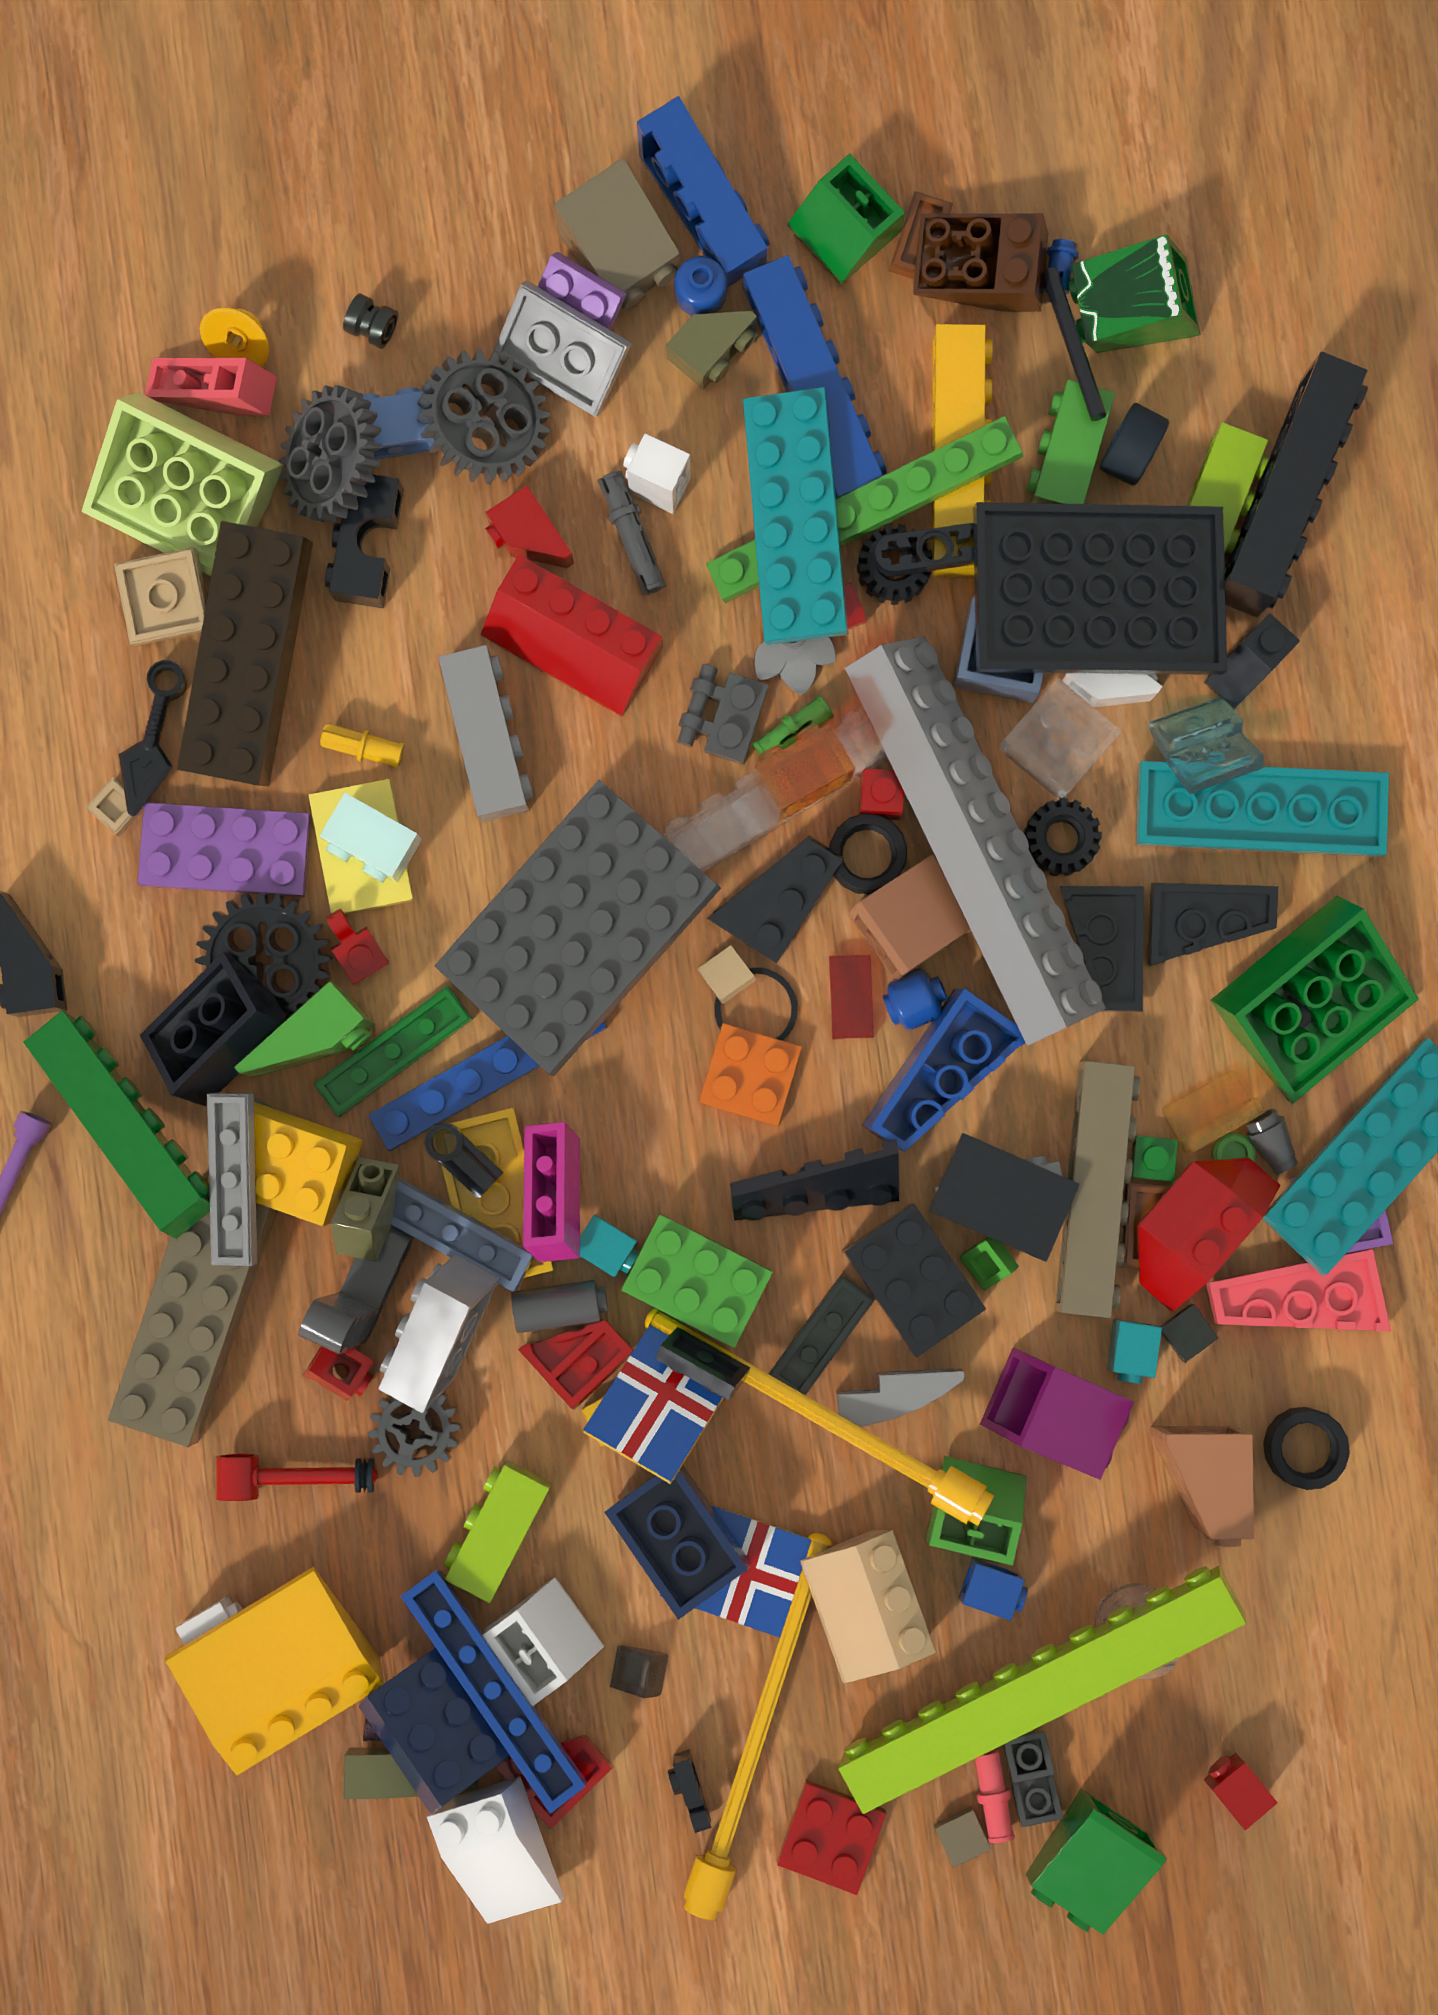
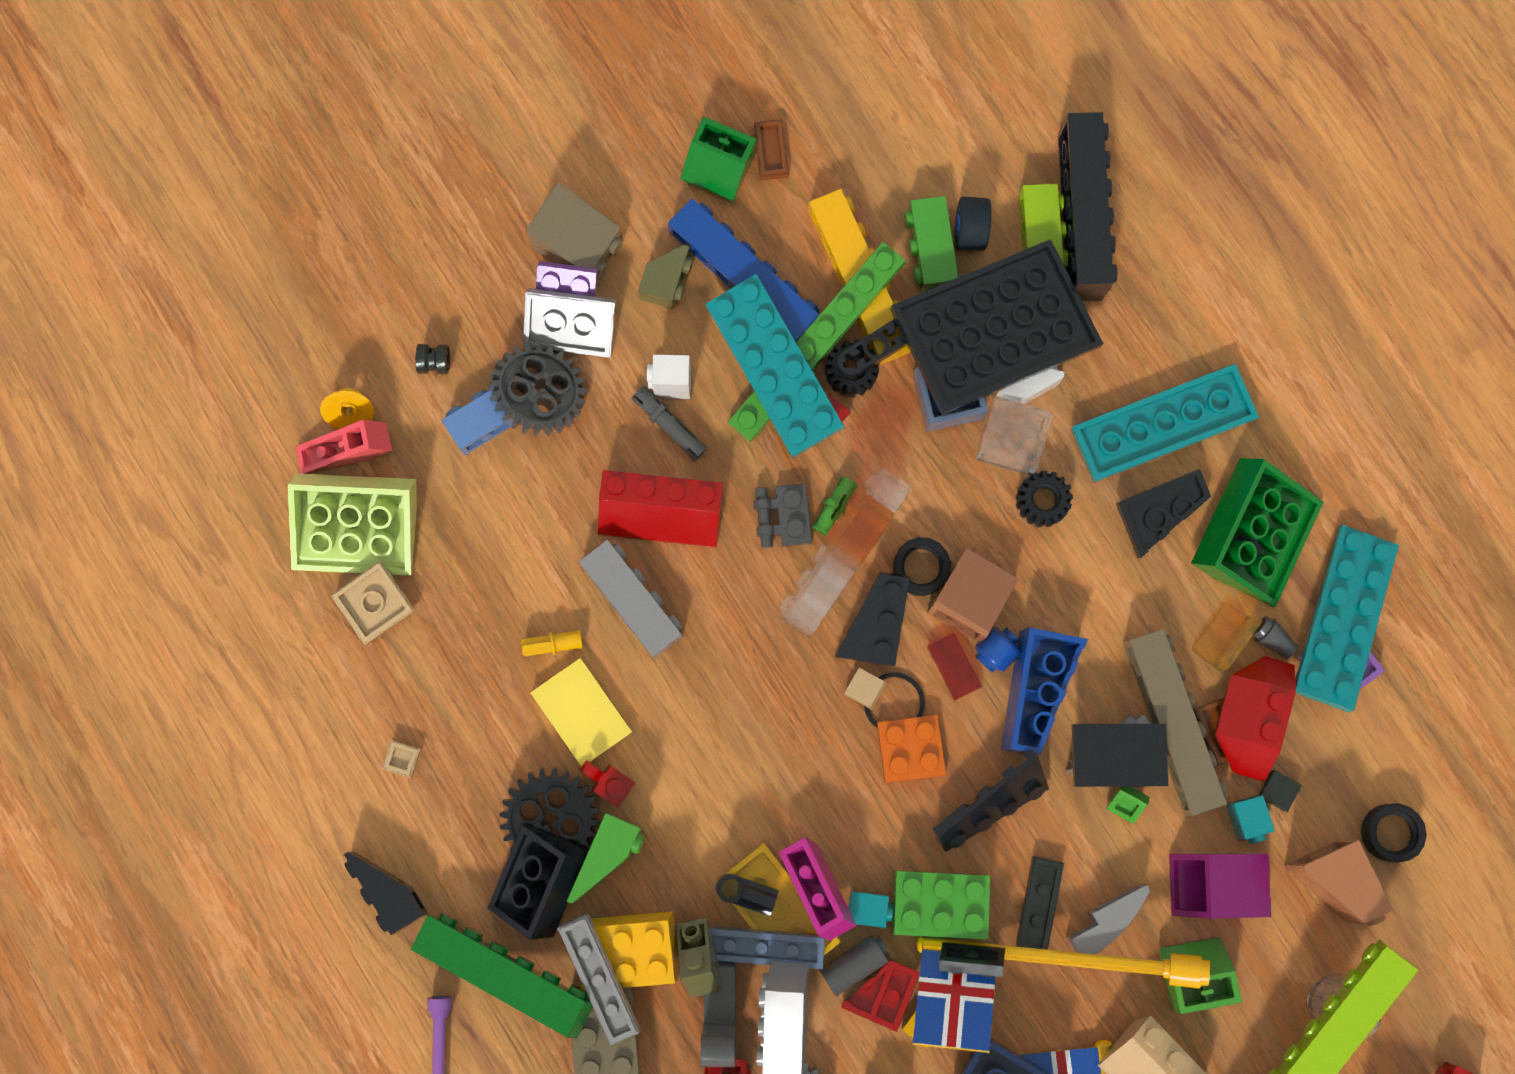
camera: 25 degrees left, 5 degrees down
(145, 762) = (410, 720): black piece -> none
(224, 849) = (488, 755): medium lavender plate -> none
(245, 654) = (447, 617): dark brown brick -> none
(330, 454) = (446, 458): dark grey gear -> none
(354, 575) = (485, 480): black arch -> none
(370, 838) = (586, 703): light aqua brick -> none
(393, 1051) = (664, 841): green tile -> none
(453, 1091) = (734, 826): blue plate -> none
(526, 530) = (599, 452): red slope -> none
(576, 927) = (752, 702): dark grey plate -> none
(700, 190) = (615, 182): blue wedge -> none
(700, 286) = (642, 243): blue head -> none
(794, 661) = (814, 461): light grey plate -> none
(881, 793) = (913, 522): red brick -> none
(914, 1279) = (1084, 838): black brick -> none
(975, 838) = (991, 525): light grey brick -> none
(983, 260) = (818, 147): reddish brown slope -> none
(993, 1589) = (1234, 1024): blue brick -> none
(1062, 255) = (870, 130): blue pin -> none
(1073, 344) = (904, 176): black bar -> none
(1111, 940) = (1107, 553): black wing -> none
(1134, 296) = (927, 129): slope -> none
(1154, 1158) = (1203, 684): green plate -> none
(1205, 745) = (1109, 397): clear light blue slope -> none
(1232, 1147) = (1250, 654): bright green tile -> none
(1253, 660) = (1114, 329): black slope -> none
(1302, 1298) = (1344, 732): coral wing -> none

